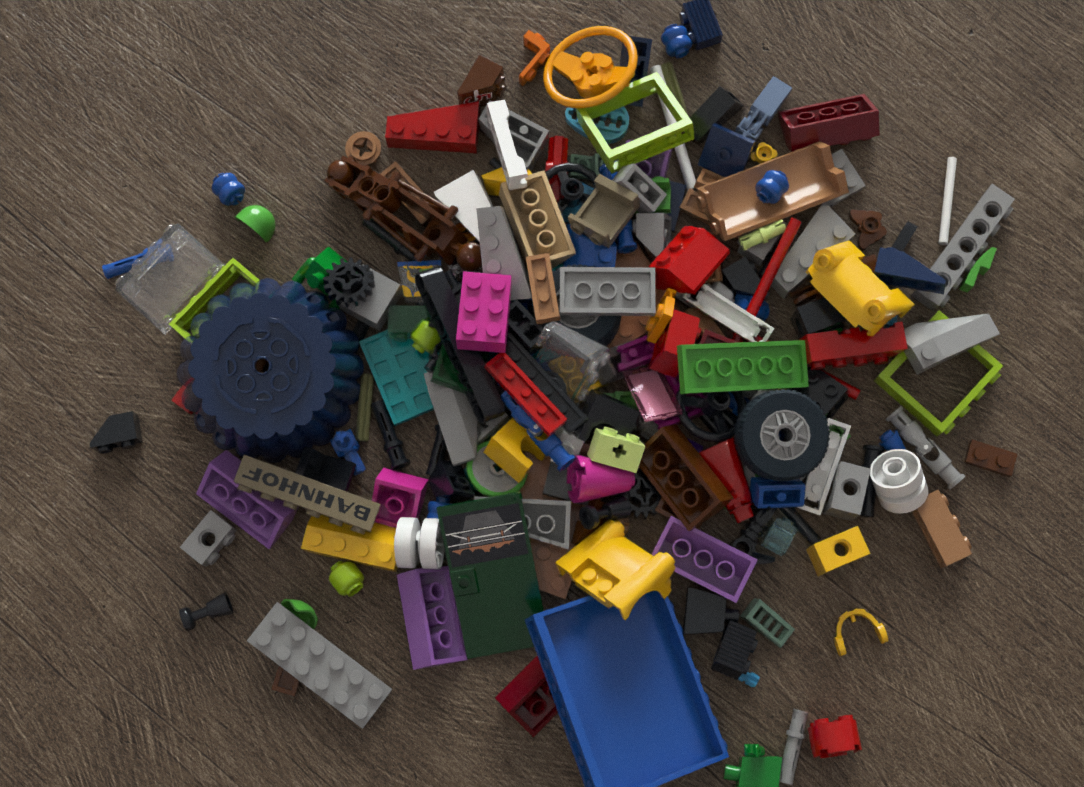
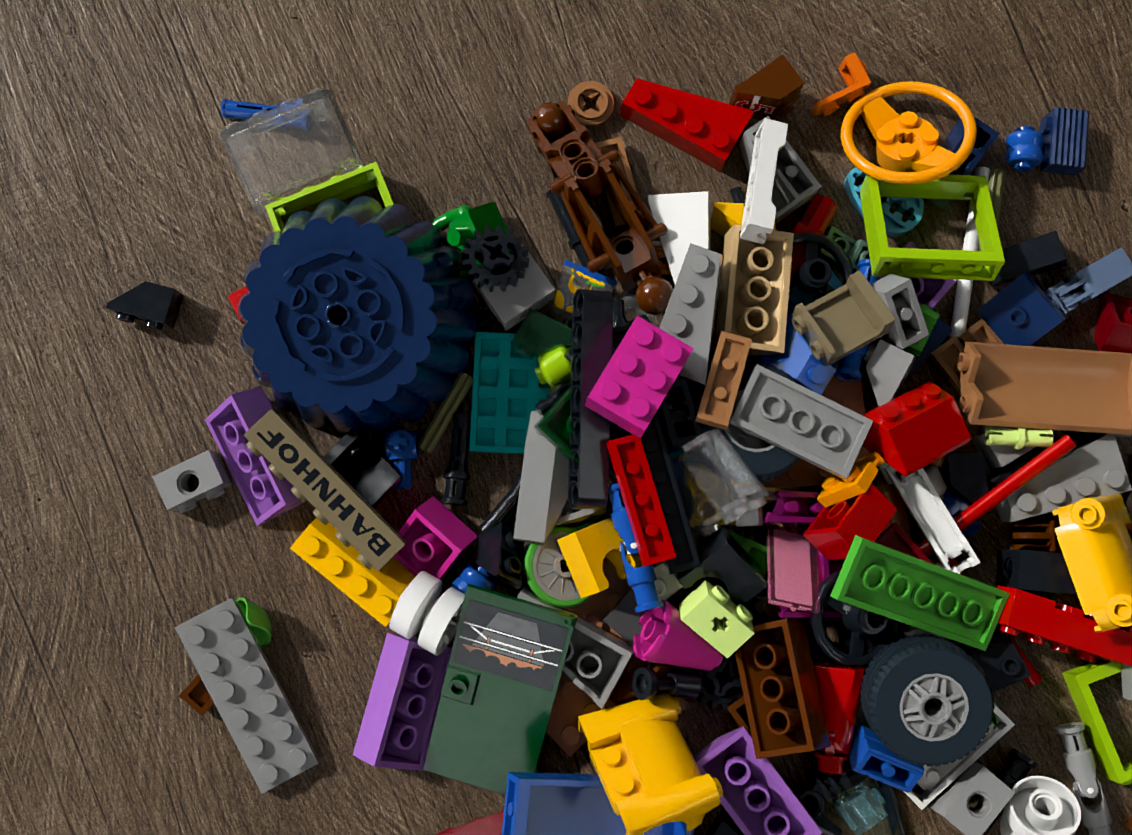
camera: 20 degrees right, 5 degrees up
(214, 608) = (165, 567): black piece -> none
(228, 189) = (410, 77): blue piece -> none
(259, 220) = (428, 130): bright green helmet -> none
(346, 578) = (327, 607): lime head -> none
(763, 148) = (1070, 334): yellow plate -> none
(772, 186) = (1059, 384): blue piece -> none
(891, 440) = (1050, 761): blue cone -> none

